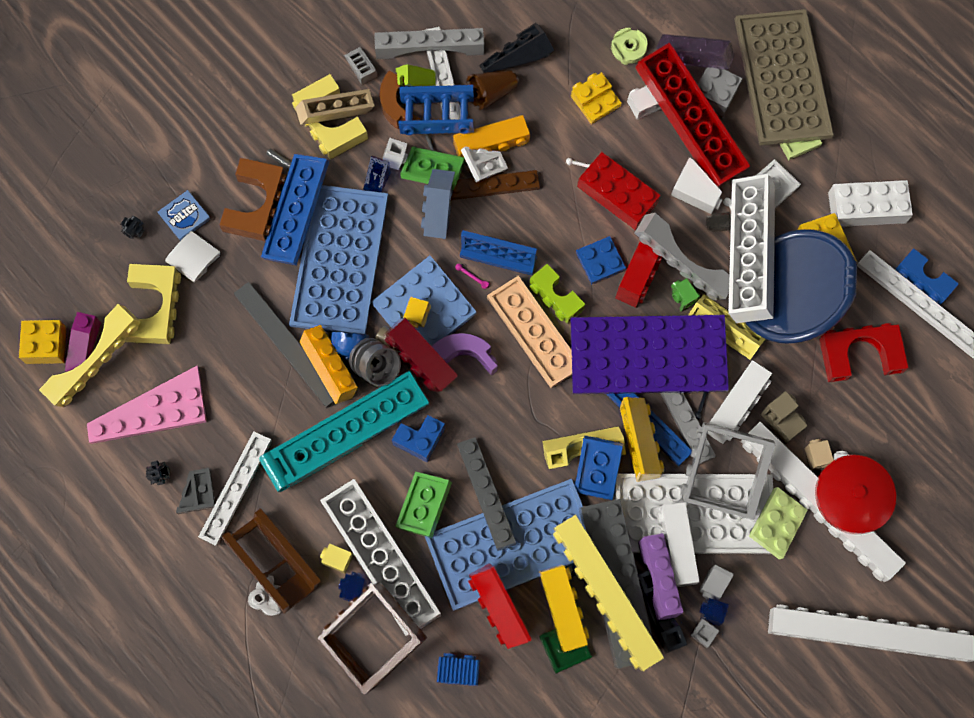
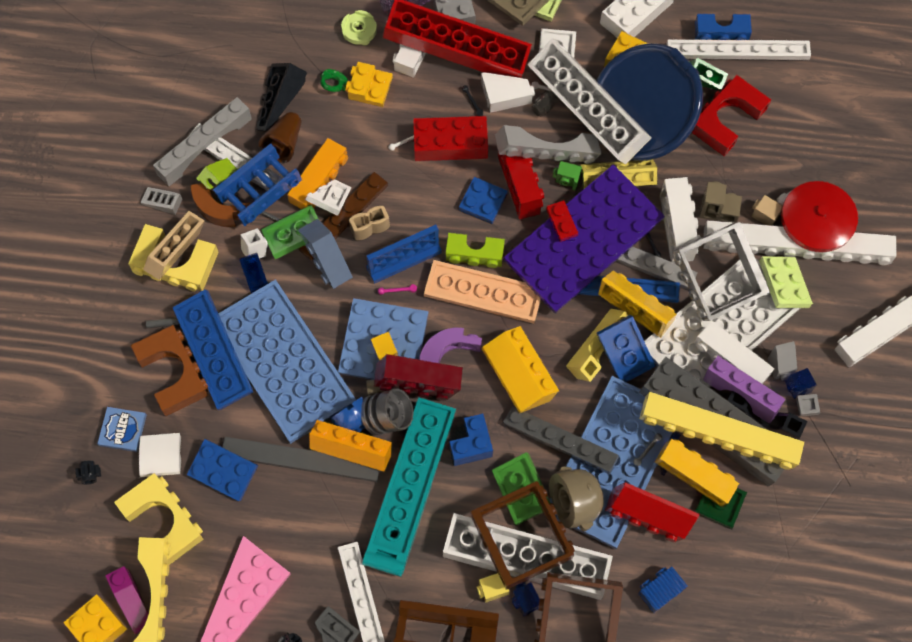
camera: 40 degrees left, 5 degrees down
(225, 304) = (222, 470): none -> blue plate
(354, 530) = (549, 512): none -> reddish brown window
(453, 546) = (576, 497): none -> dark tan piece
(491, 206) = (366, 224): none -> tan brick
(504, 414) = (520, 370): none -> yellow slope
(528, 560) = (637, 461): none -> dark grey hinge
(573, 65) = (333, 74): none -> green piece
(640, 326) = (562, 221): none -> red plate
(662, 188) = (479, 112): none -> black hinge
(873, 303) = (710, 76): none -> green slope

